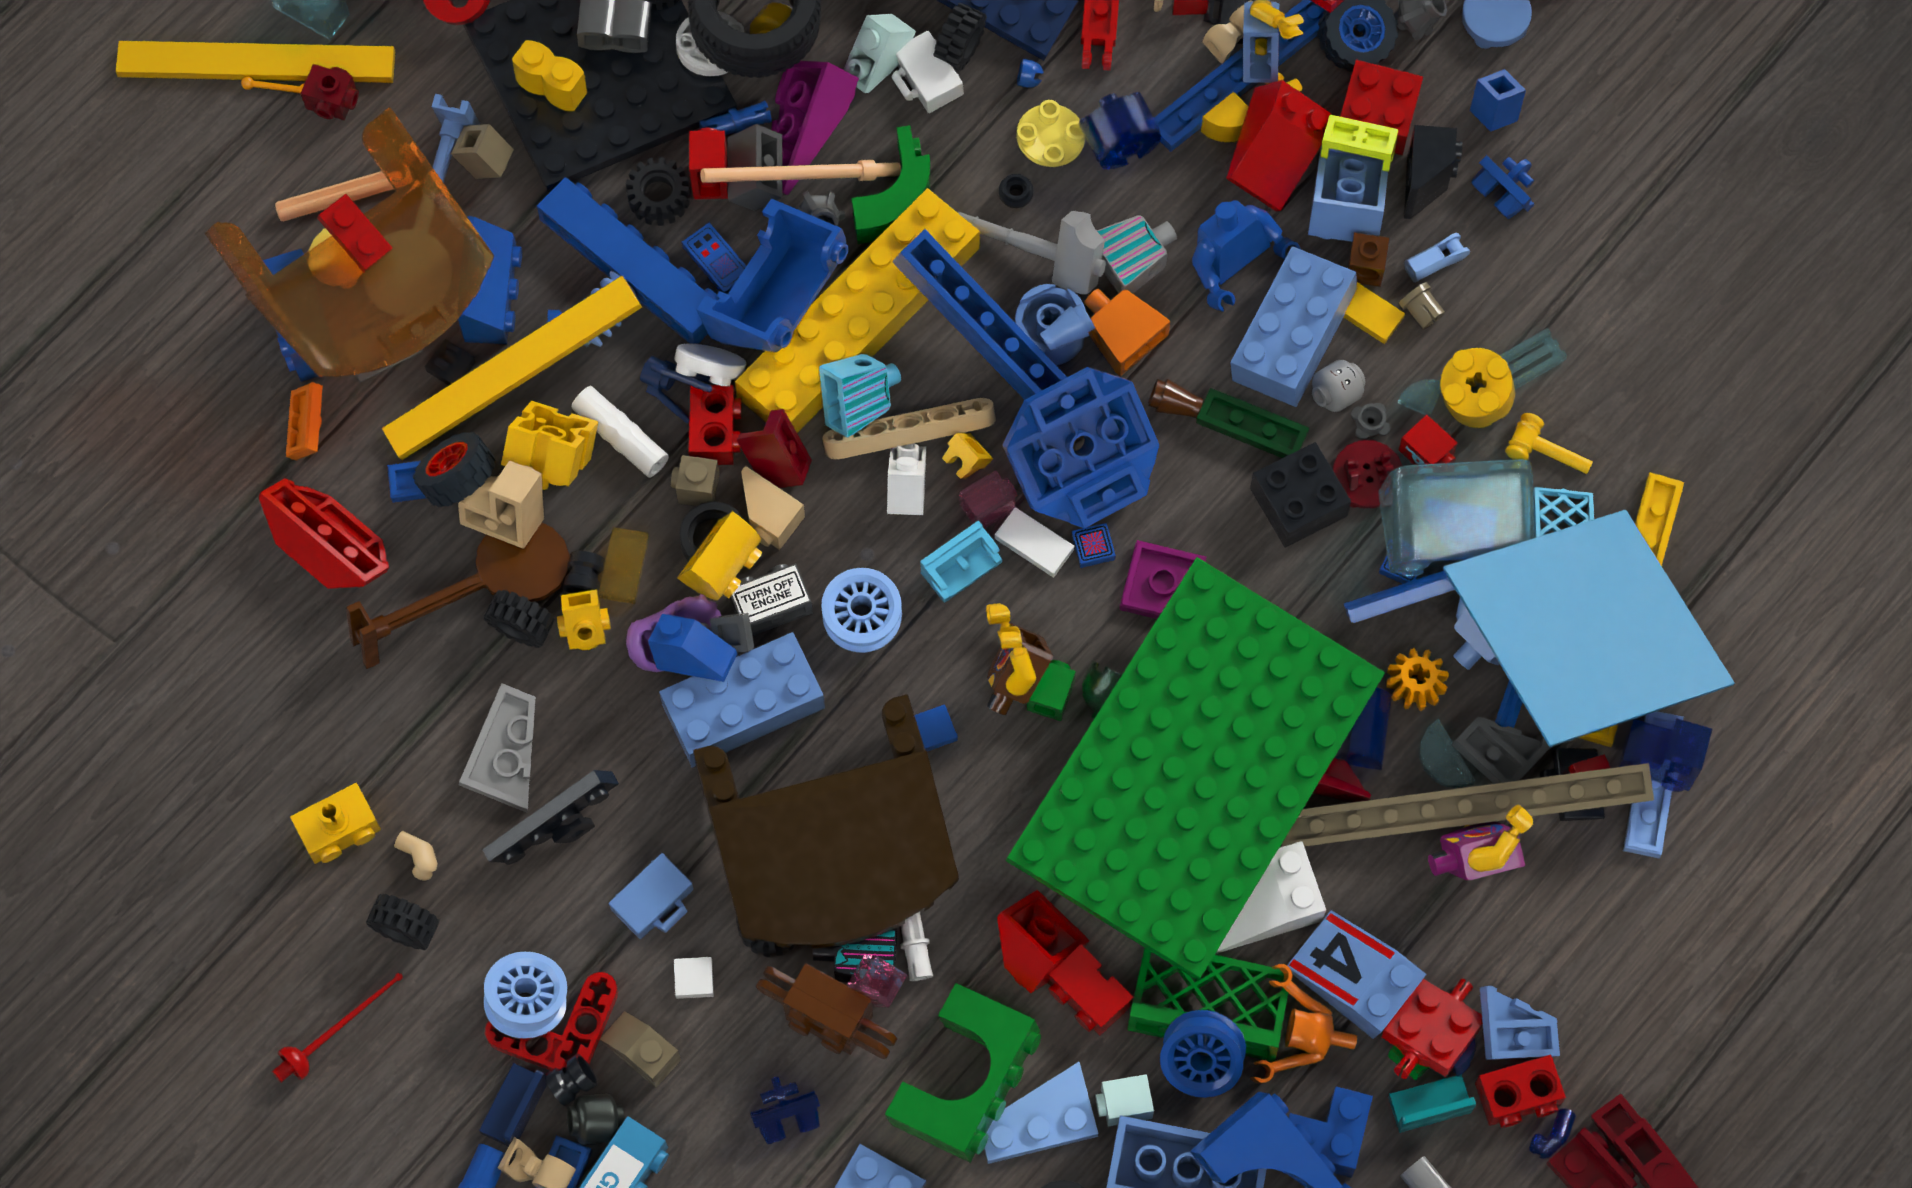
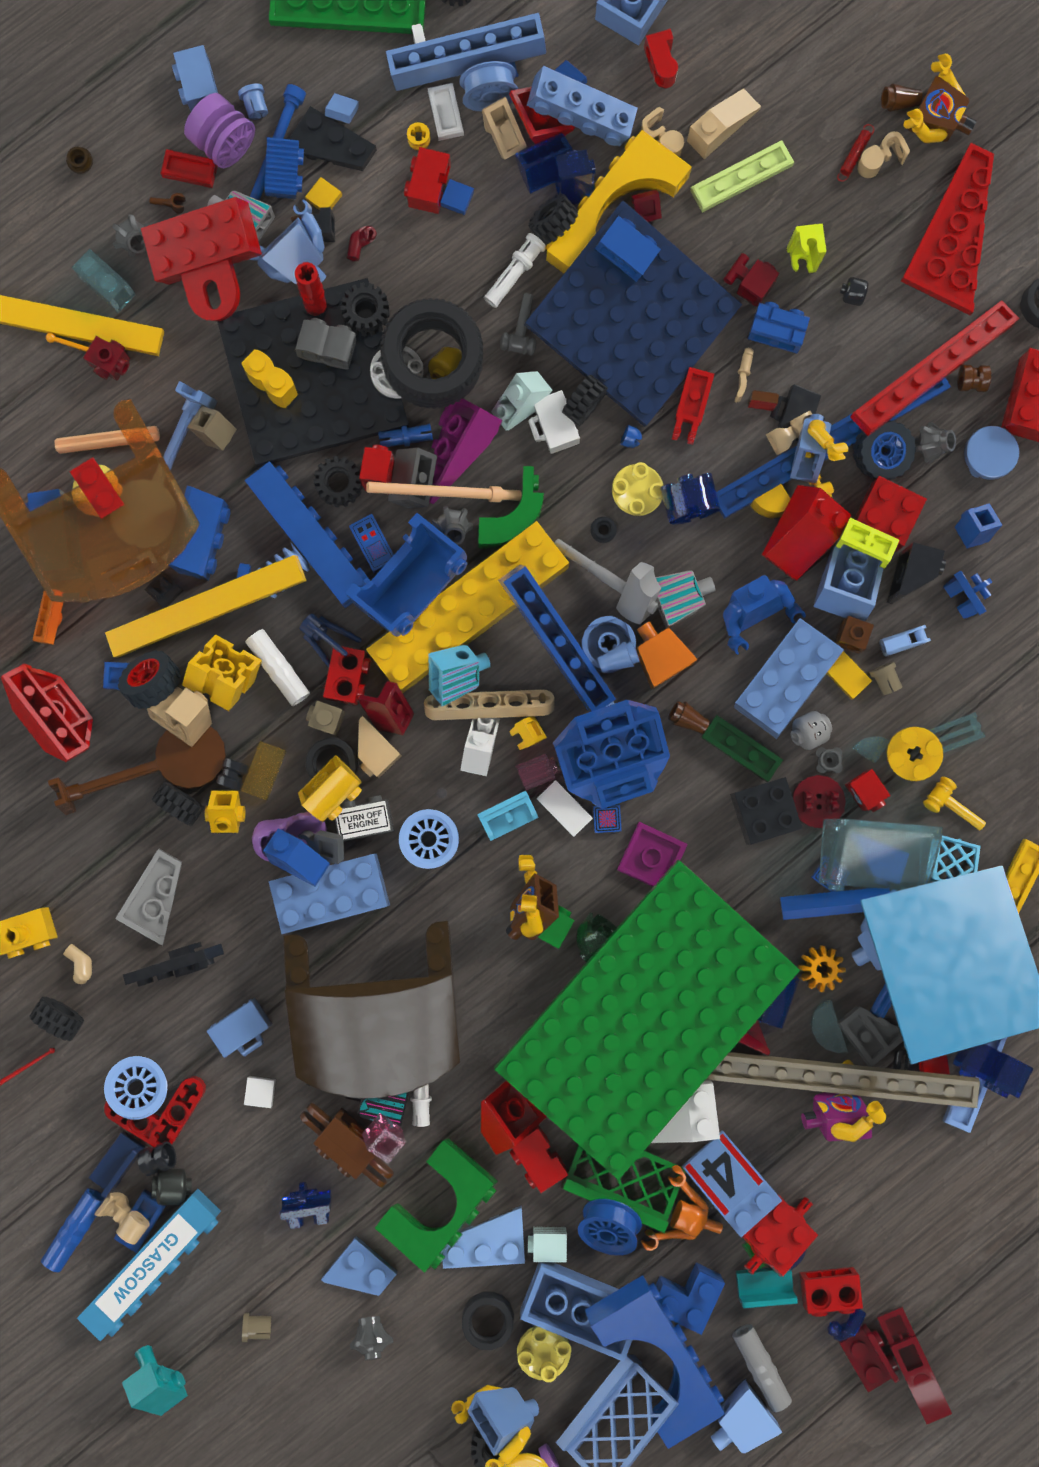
camera: 10 degrees right, 15 degrees up
(641, 1048) = (212, 1139): dark tan slope -> none
(709, 361) = (351, 628): white tile -> none
(936, 728) = (465, 937): blue tile -> none
(1516, 1029) = (837, 1247): medium blue wing -> none

